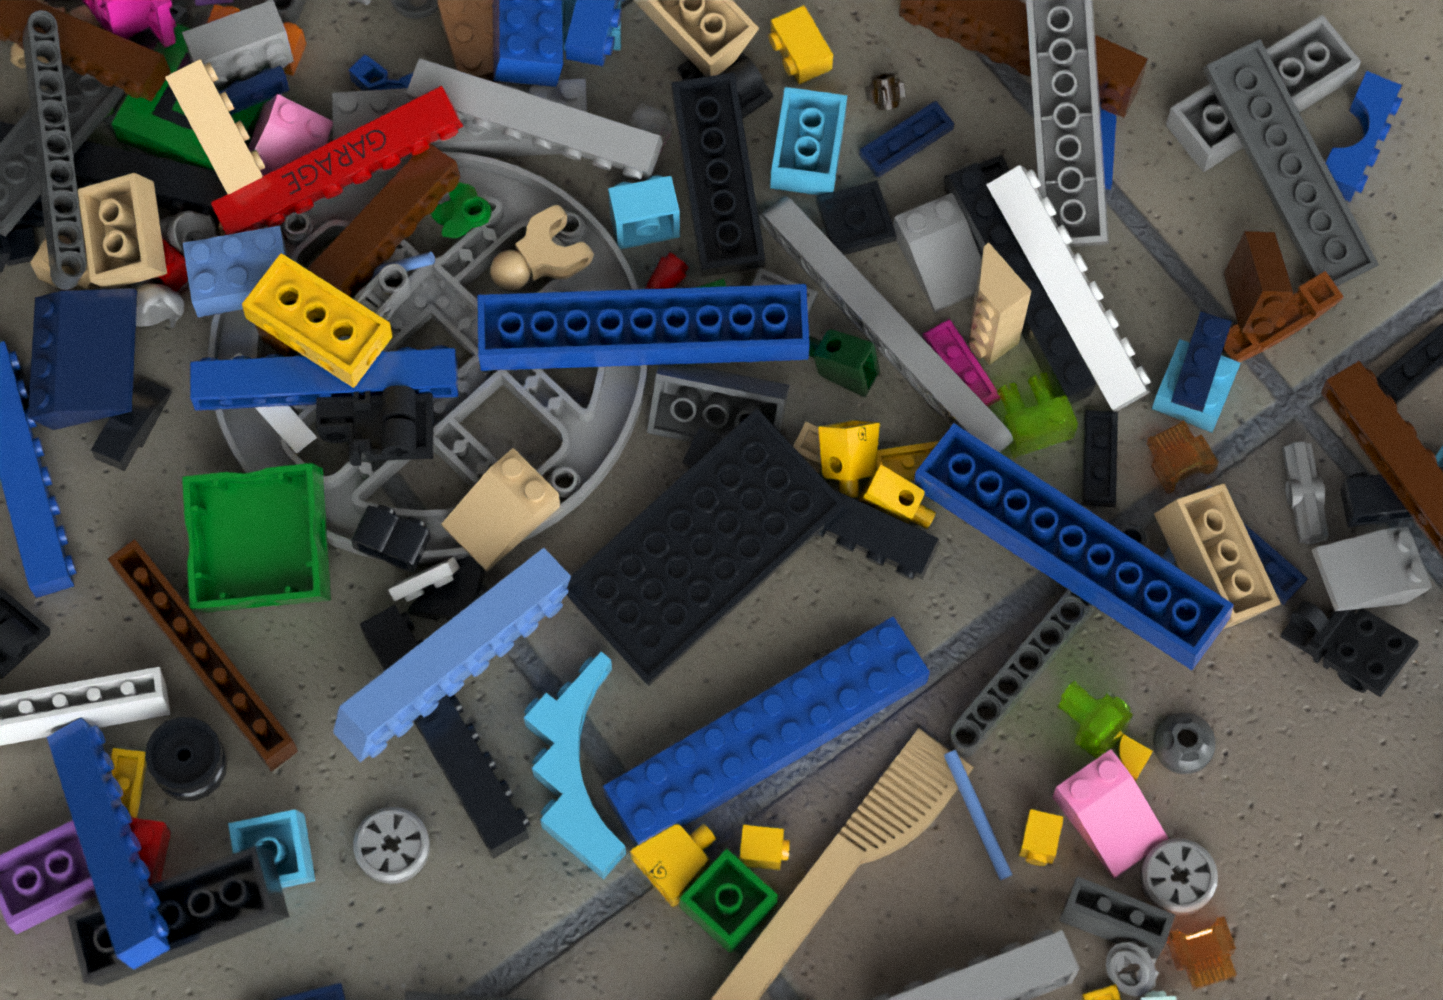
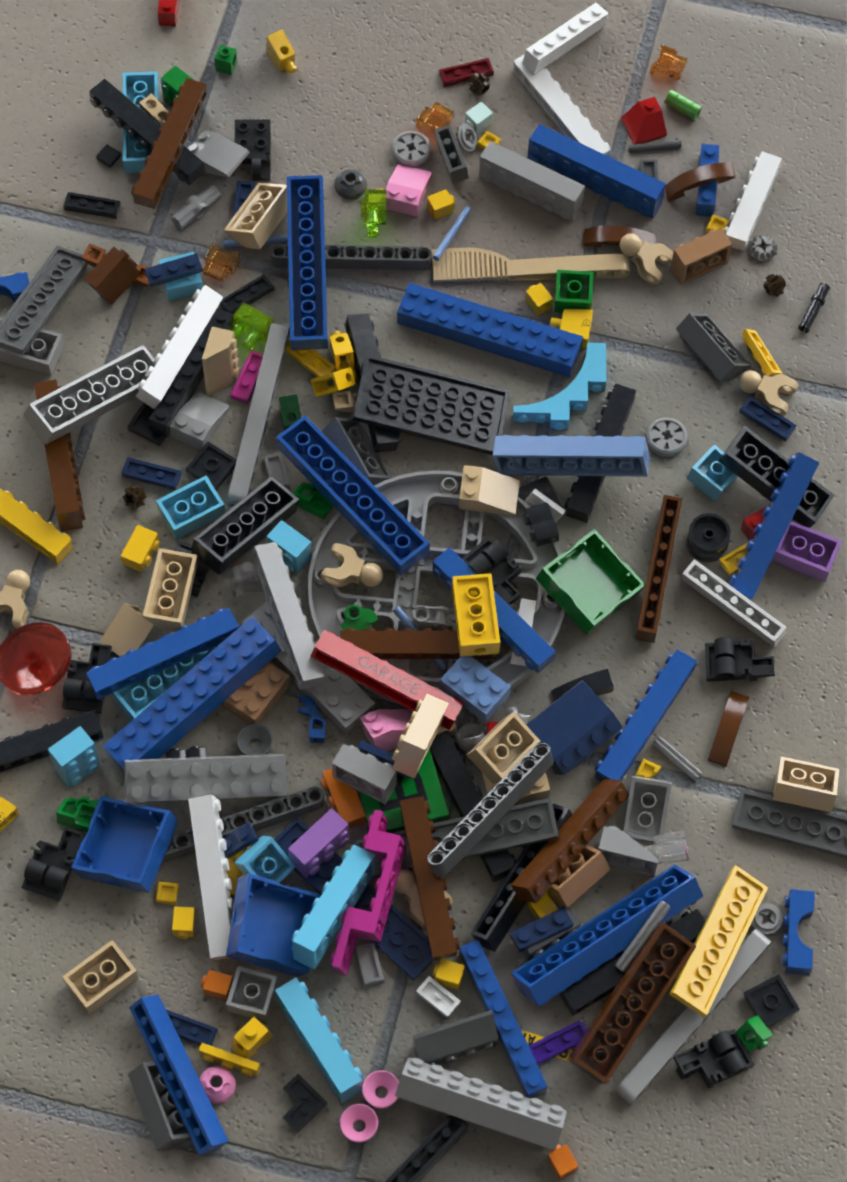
camera: 130 degrees left, 5 degrees down
(667, 273) = (310, 523): red cone -> none

